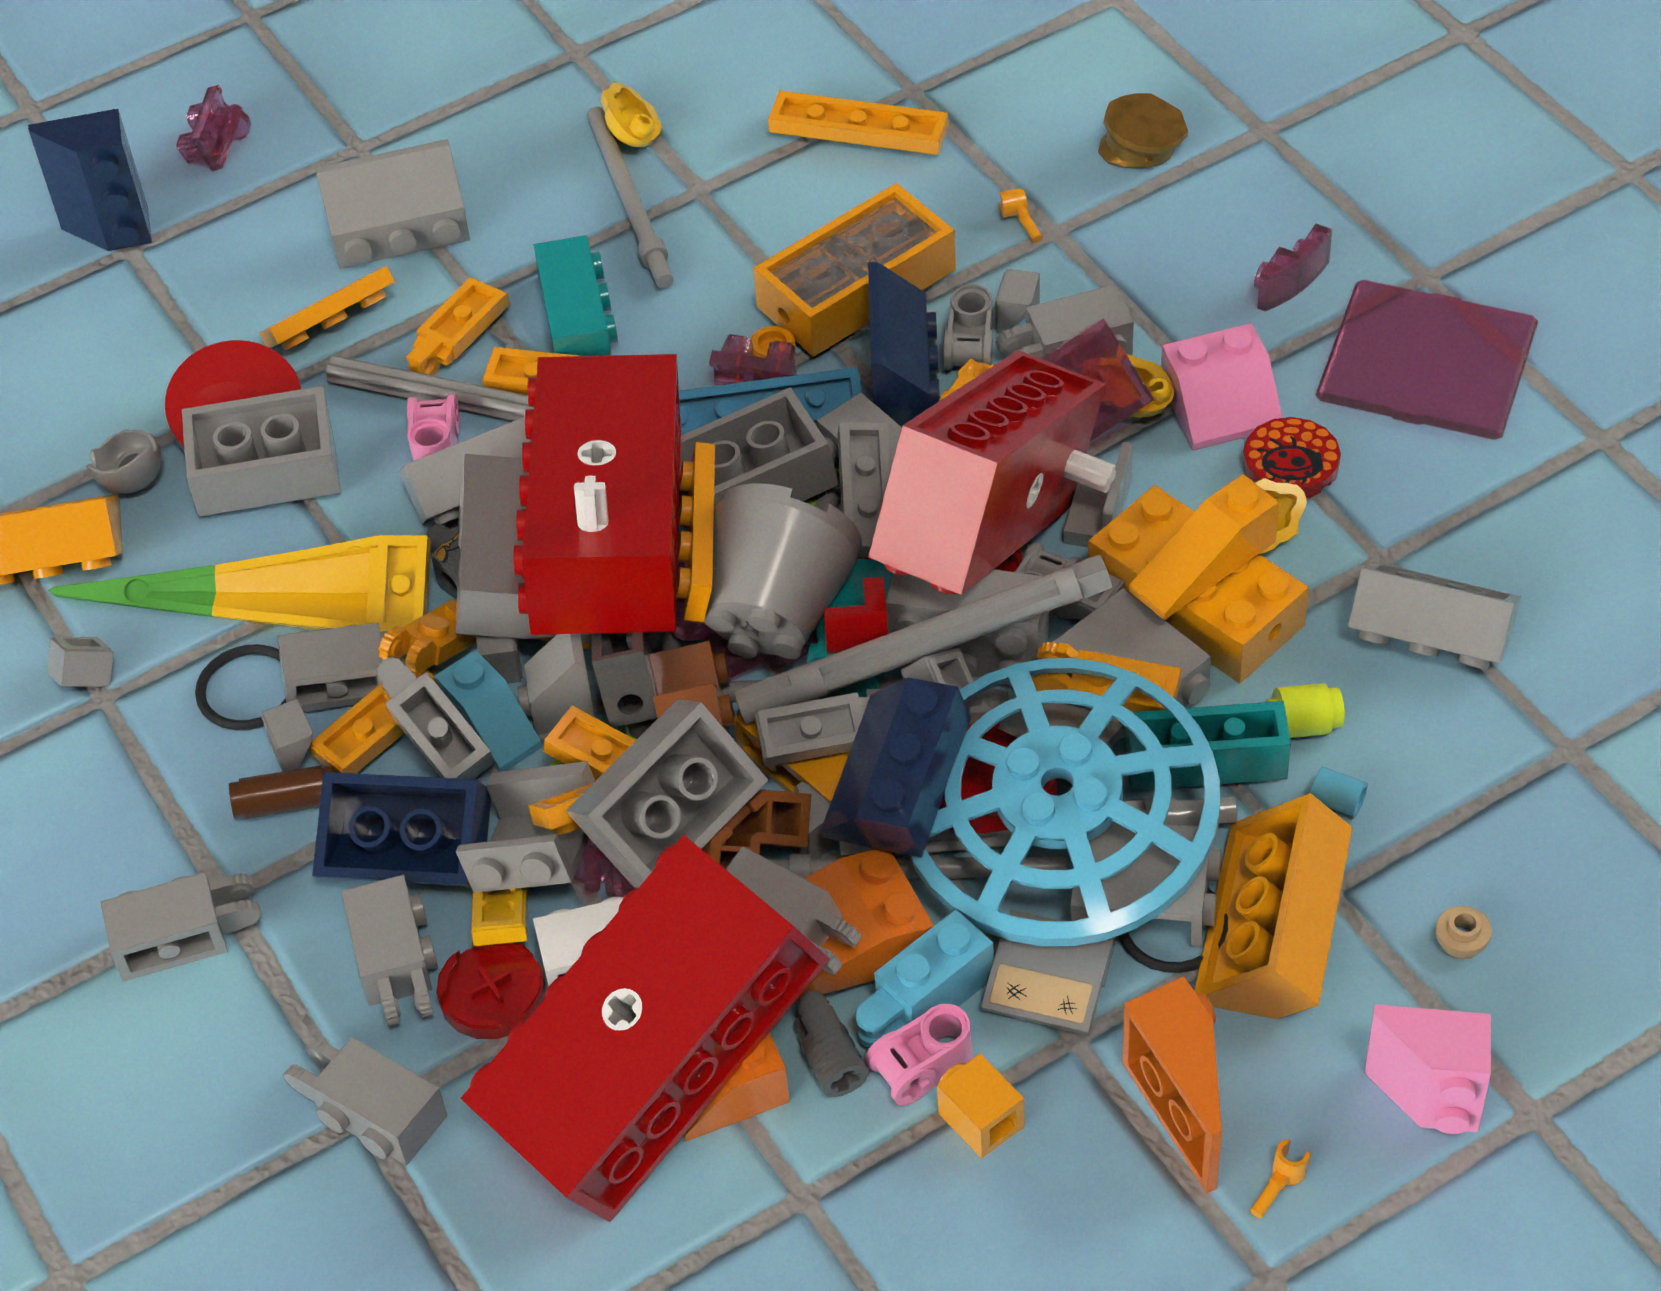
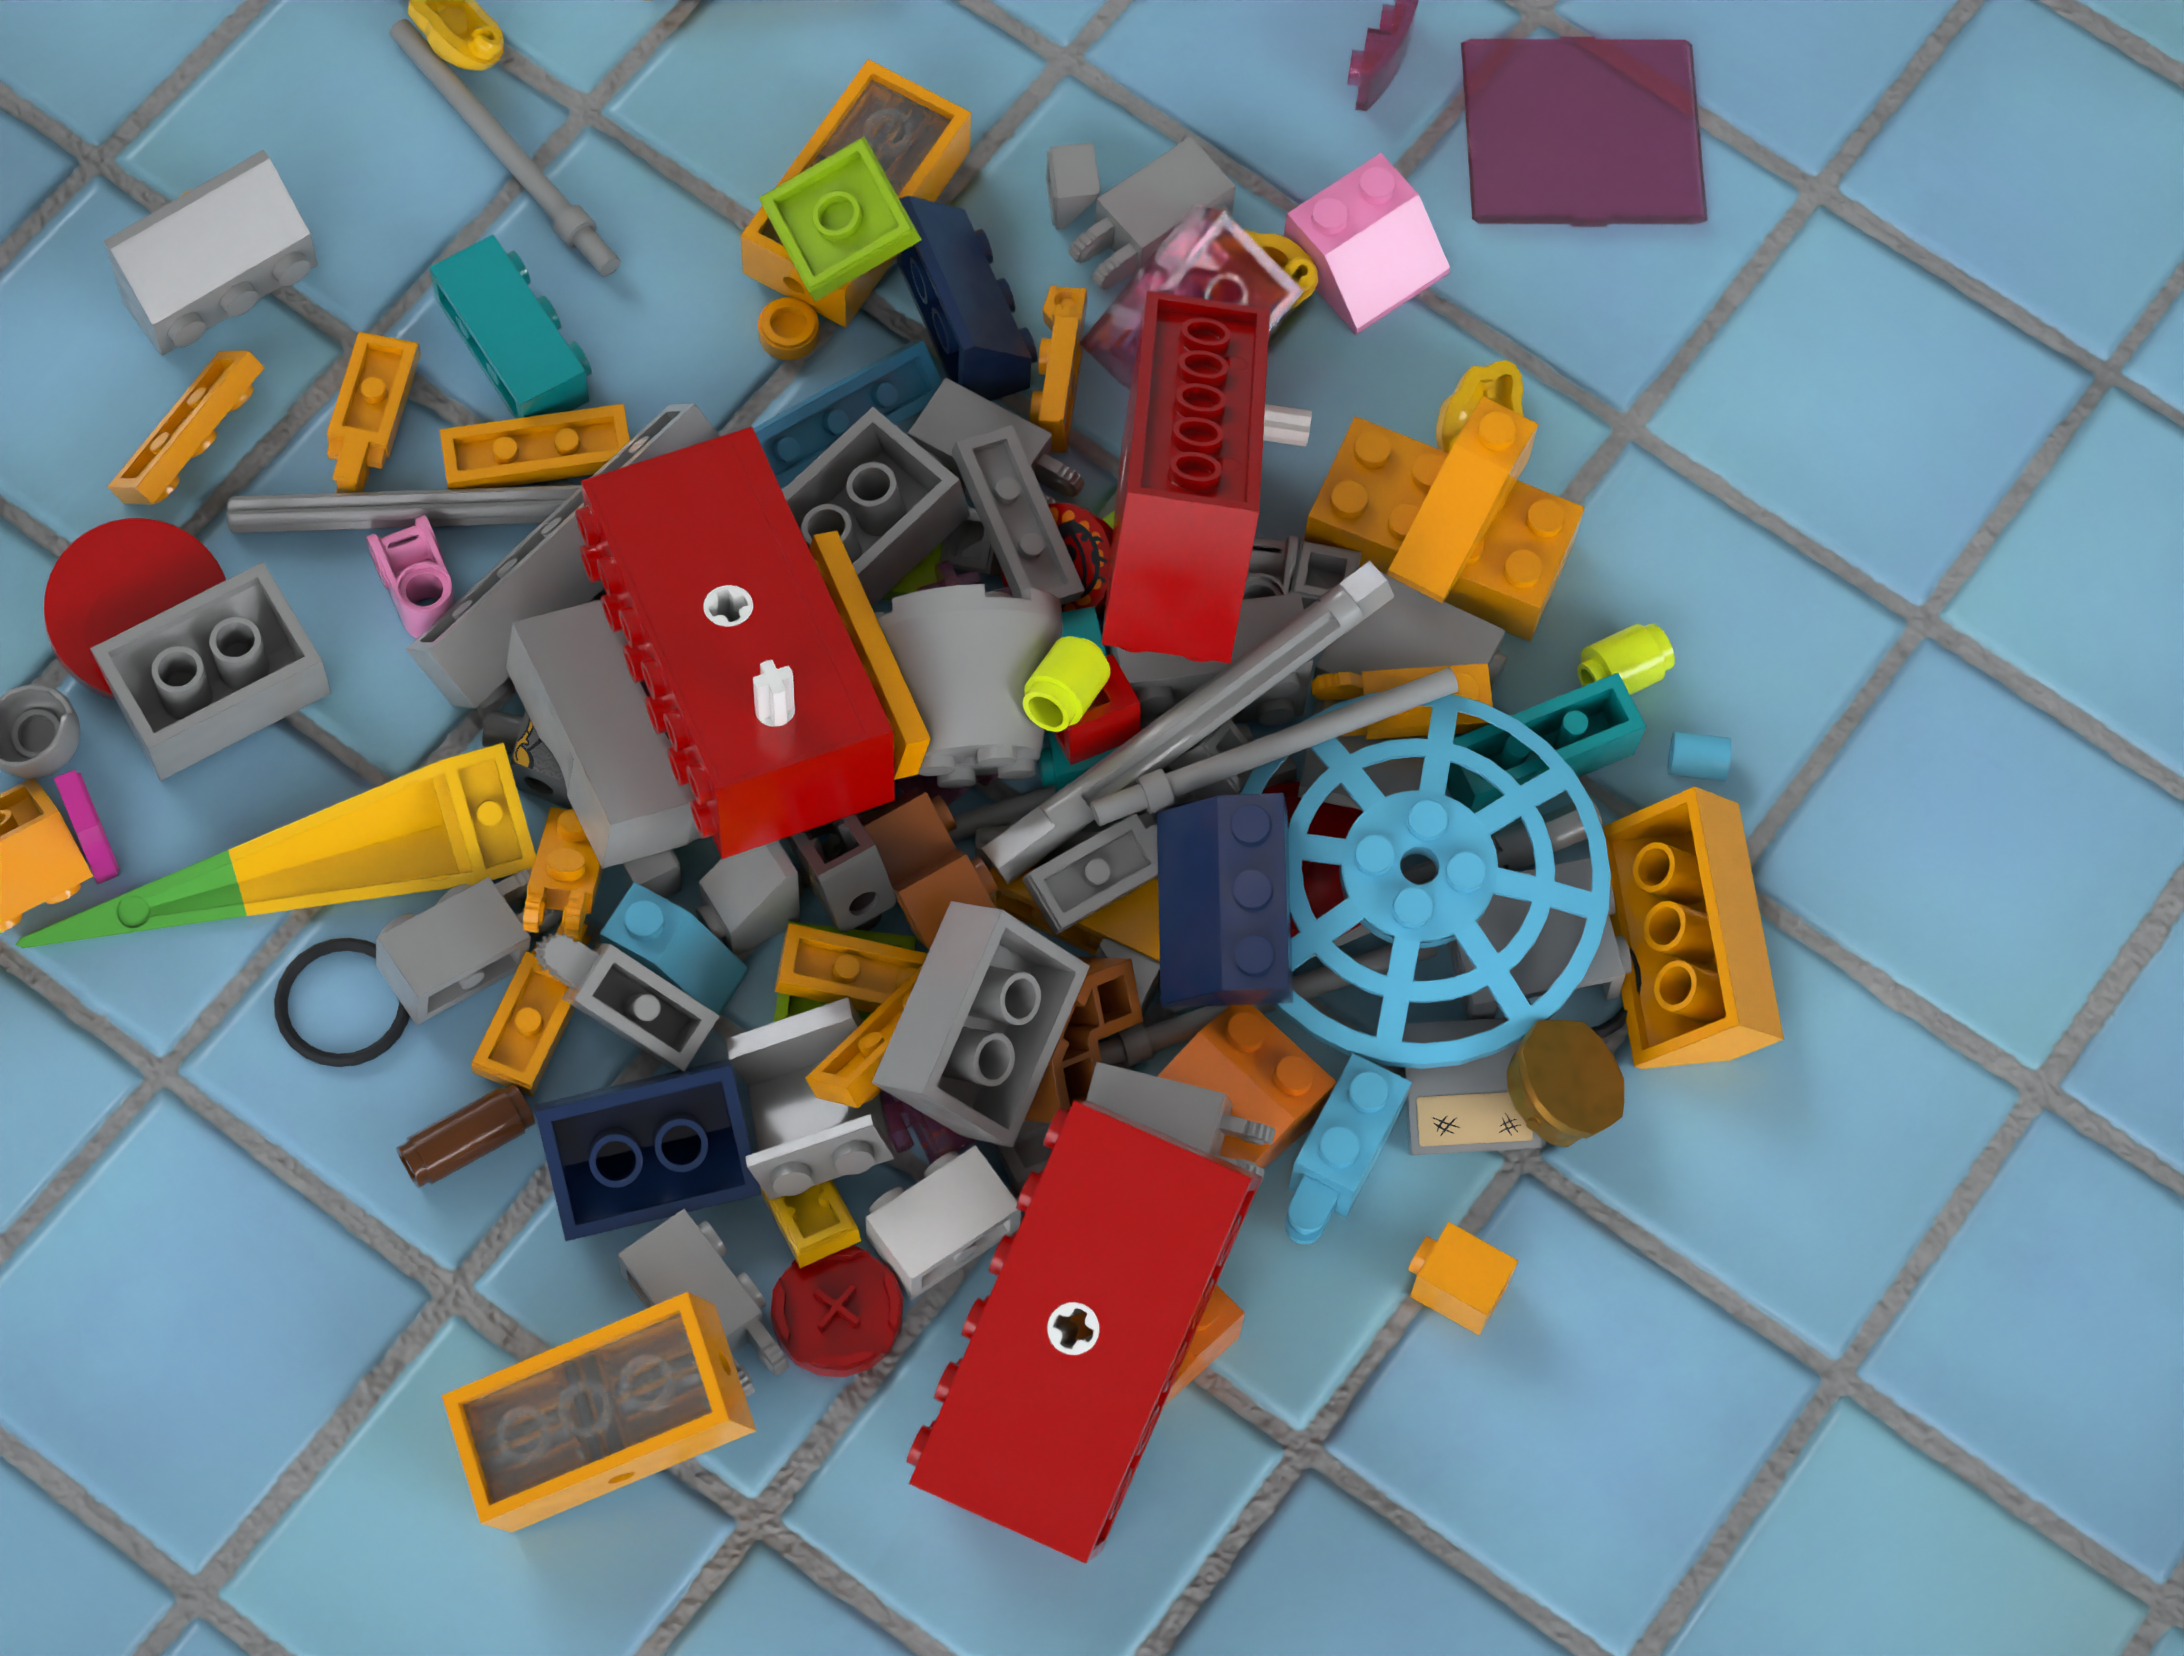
camera: 30 degrees left, 15 degrees up
(80, 661) = (112, 1034): light grey slope -> none
(125, 520) = (87, 826): none -> dark pink tile
(176, 922) = (419, 1351): light grey hinge -> none
(267, 988) = (598, 1413): none -> brick
(288, 733) = (442, 1061): light grey slope -> none
(370, 1098) = (767, 1500): light grey hinge -> none
(738, 365) = (762, 377): clear pink hips -> none
(822, 266) = (839, 219): none -> lime tile
(828, 1046) = (1271, 1267): dark grey hinge -> none
(832, 579) = (1065, 683): none -> neon yellow brick
(878, 676) = (1157, 790): none -> light grey bar
(916, 1056) = (1365, 1243): bright pink piece -> none
(969, 327) = (1033, 251): light grey piece -> none
(1014, 203) = (1007, 33): light orange hand -> none
(1095, 509) = (1290, 471): light grey panel -> none
(1112, 970) = (1565, 1082): none -> pearl gold hat
(1175, 1068) = (1674, 1173): orange slope -> none
(1284, 1173) = (1810, 1249): light orange hand -> none
(1292, 453) = (1478, 315): tile -> none
(1432, 1064) = (1938, 1078): bright pink slope -> none
(1433, 614) = (1724, 489): light grey slope -> none
(1459, 943) = (1891, 907): tan plate -> none

